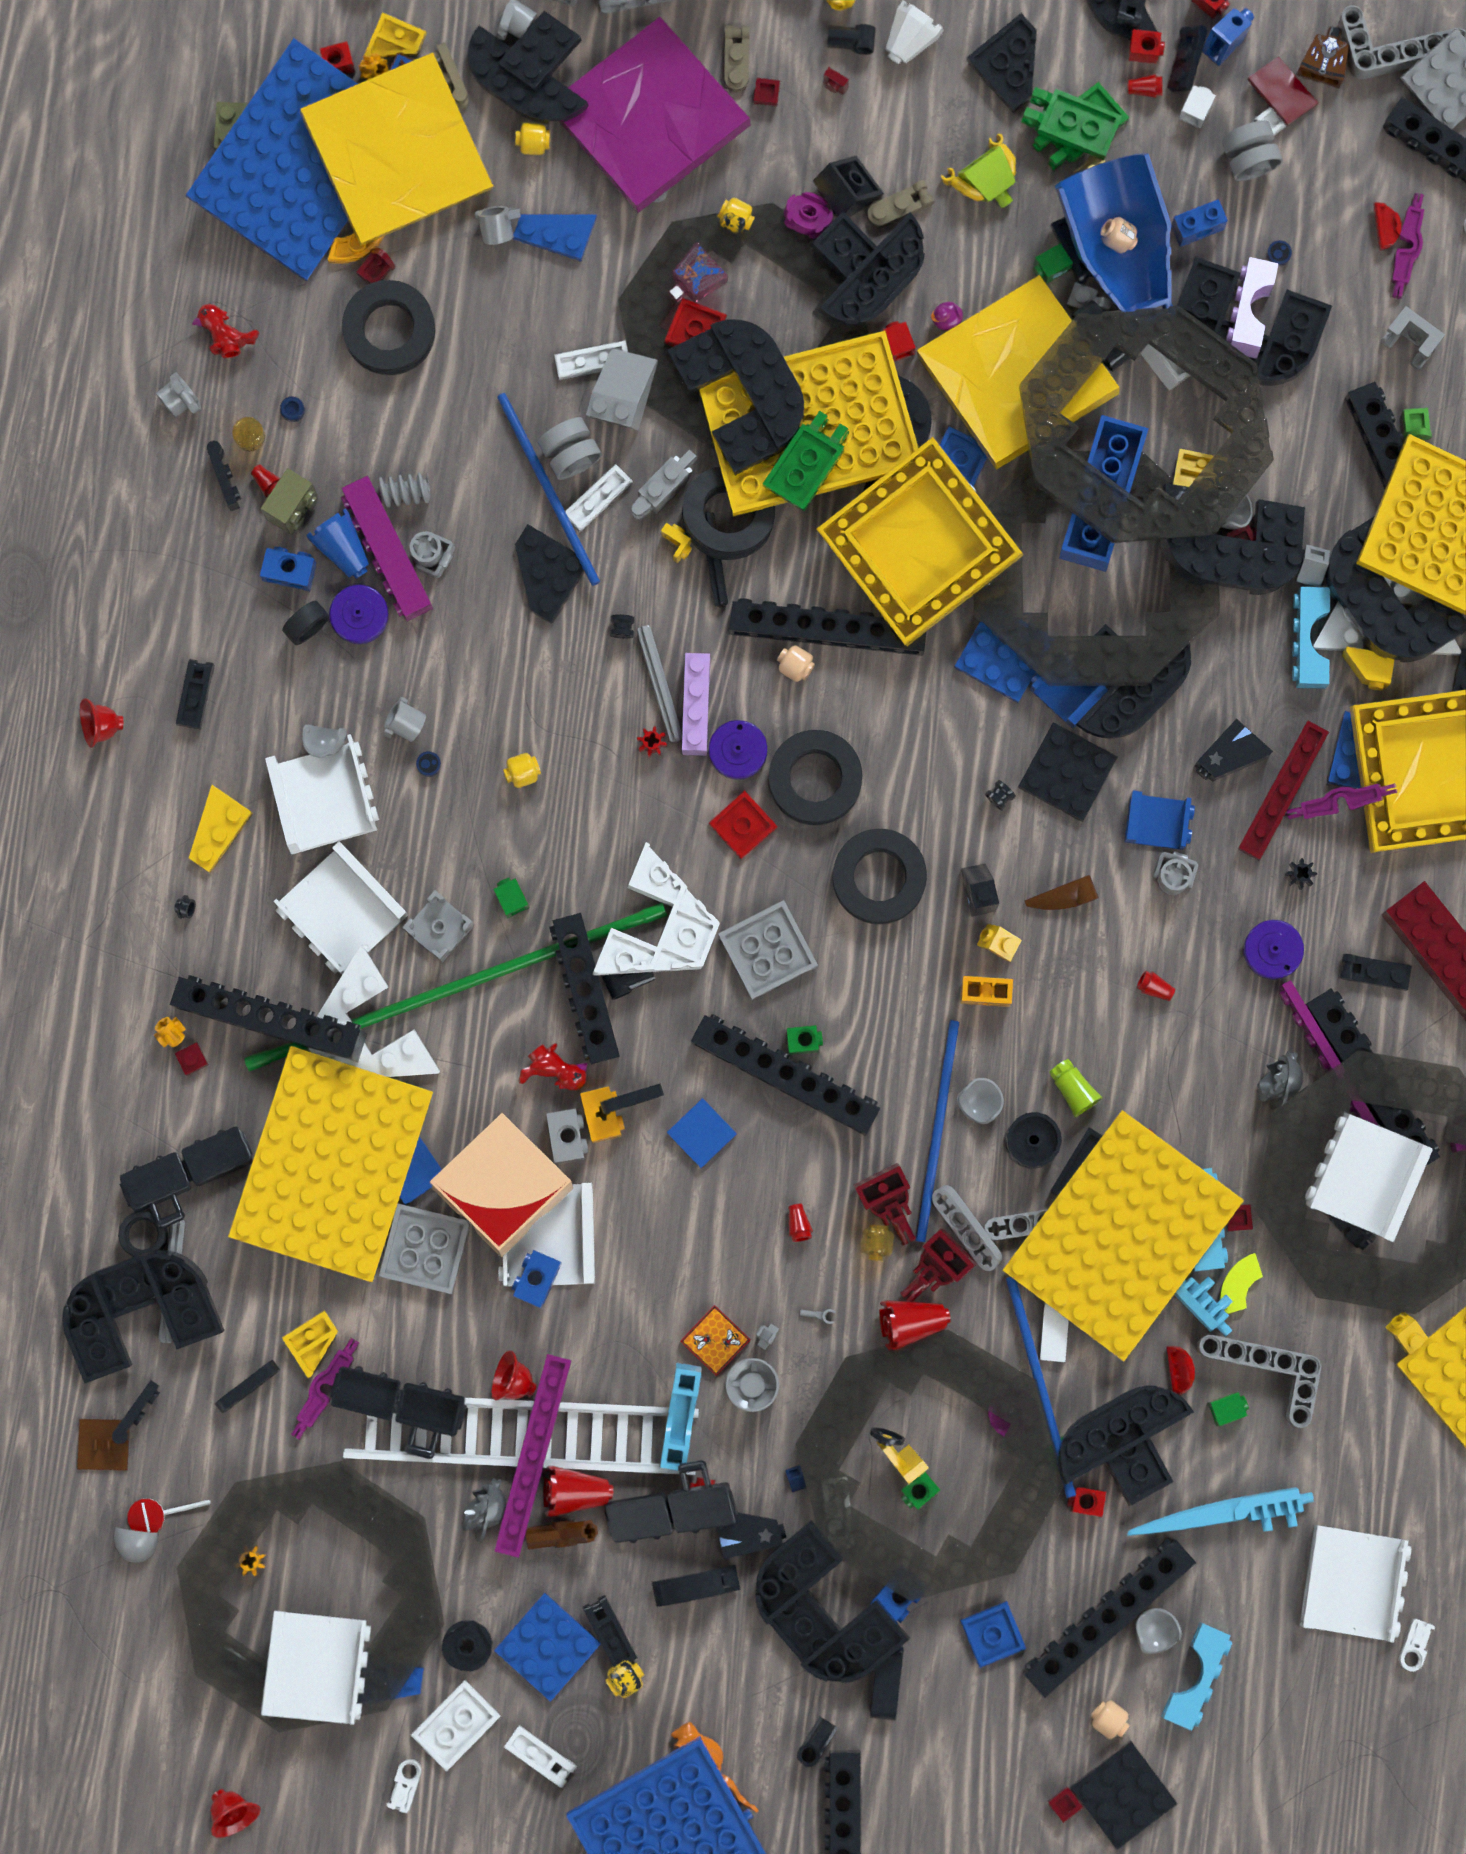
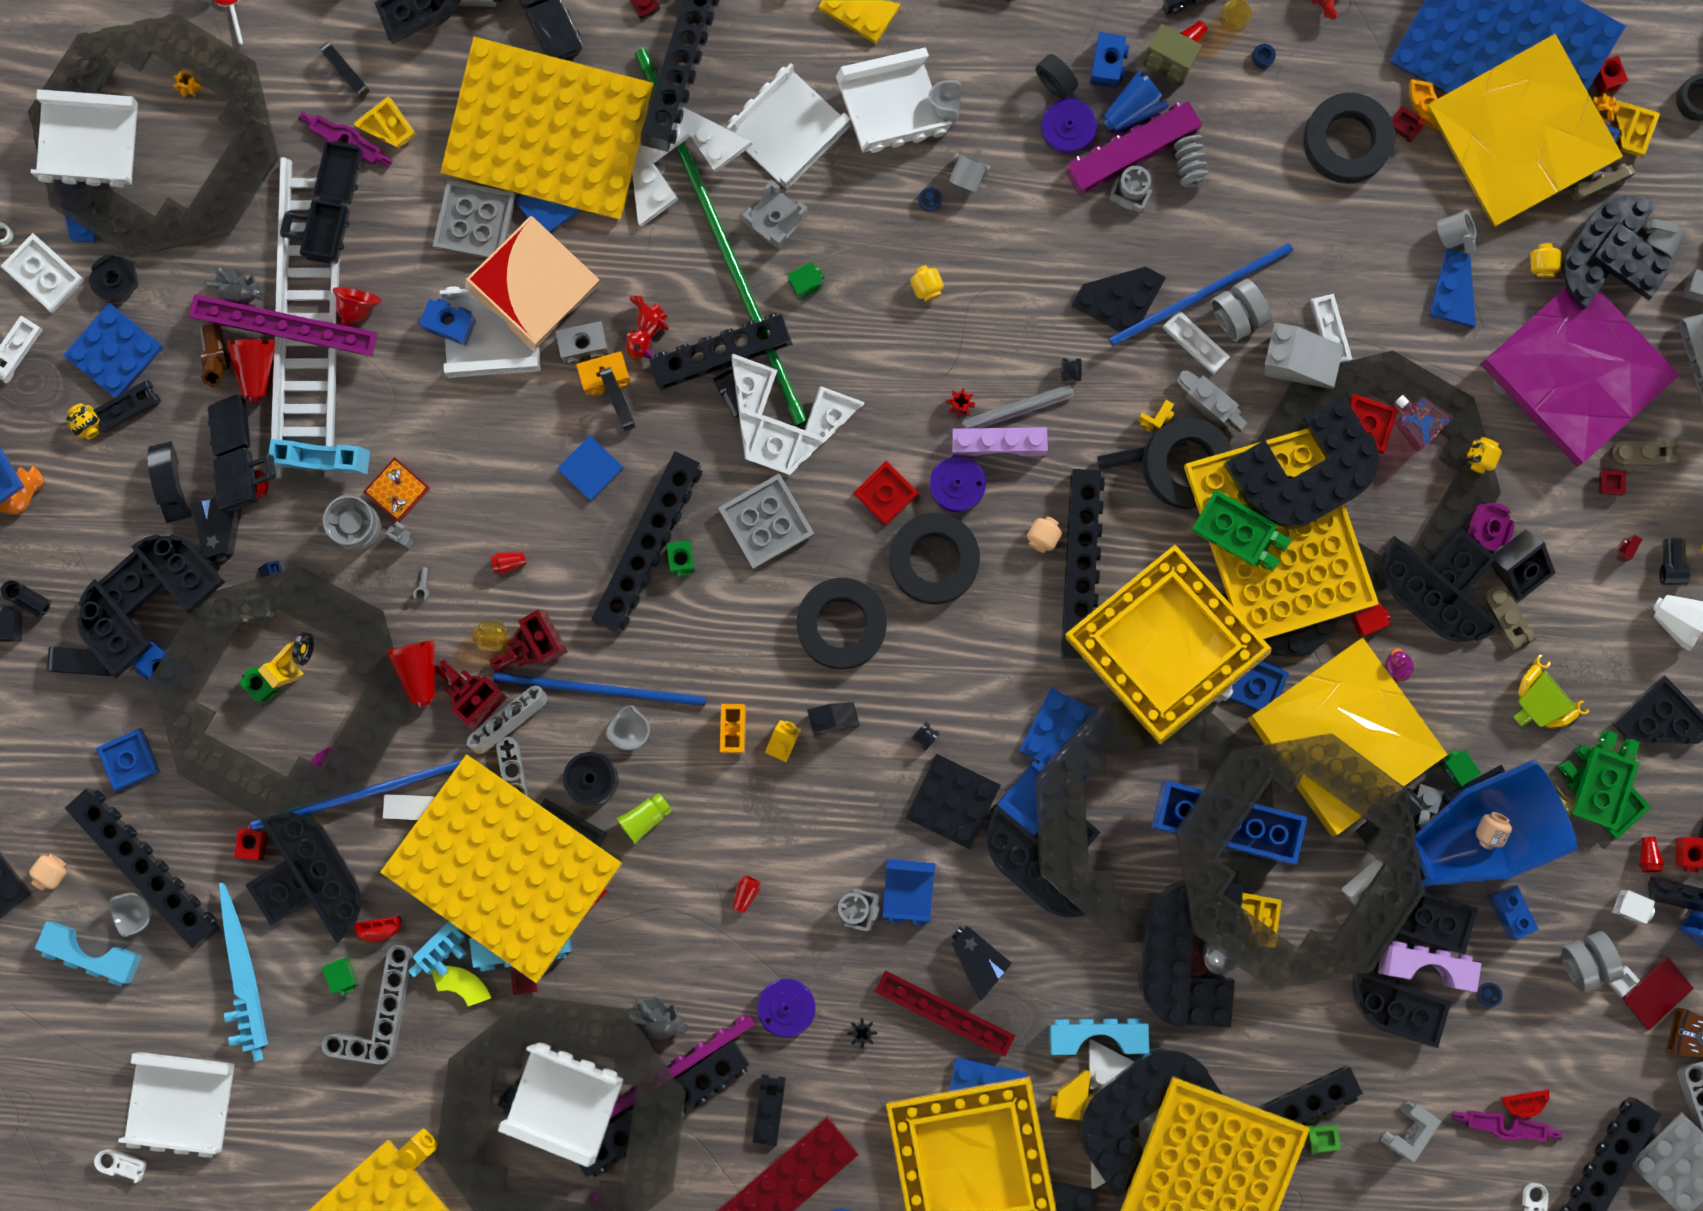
camera: 85 degrees right, 0 degrees up
(1065, 896) = (830, 804): reddish brown piece -> none
(1313, 566) = (1170, 1036): light grey brick -> none
(1354, 798) = (938, 1082): magenta piece -> none

